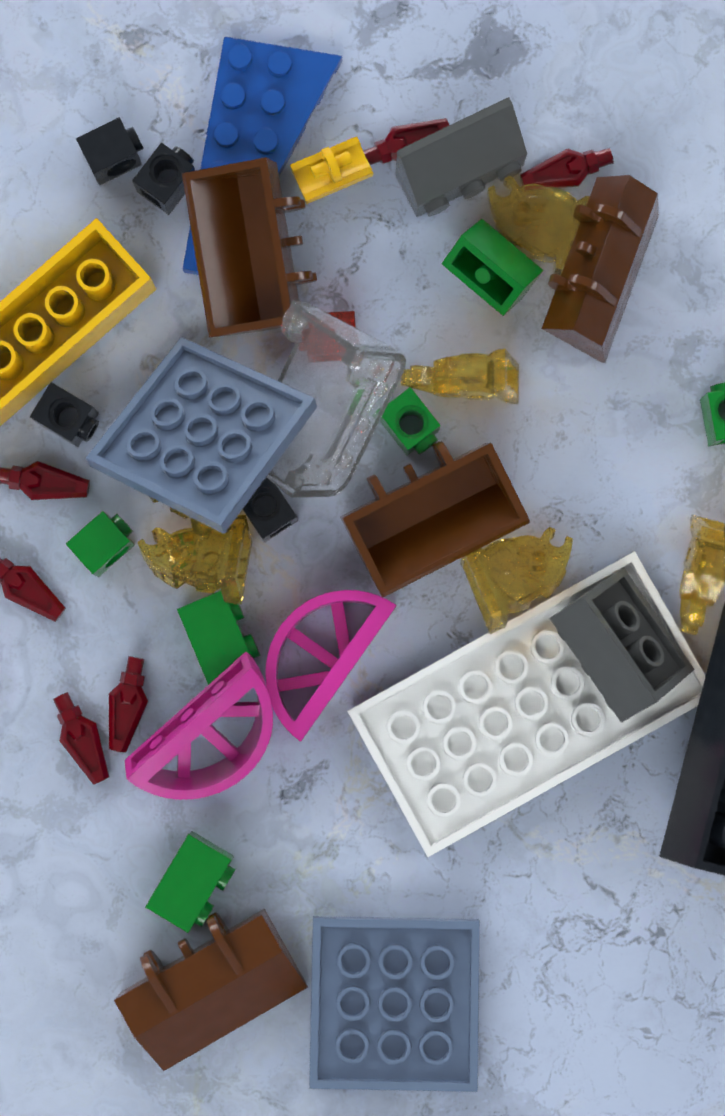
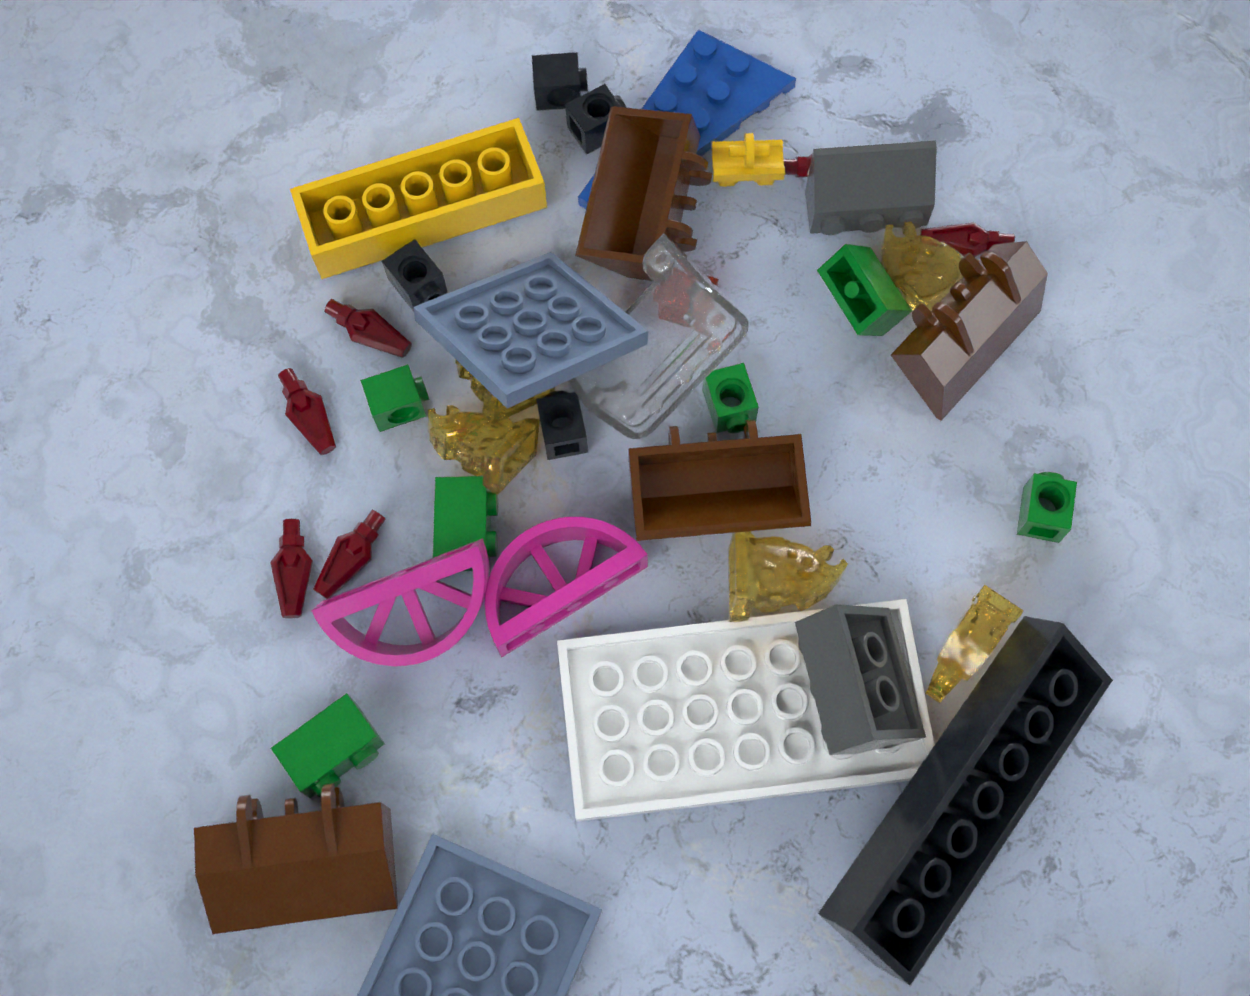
camera: 25 degrees right, 15 degrees down
(468, 376) = (806, 374): clear yellow piece -> none

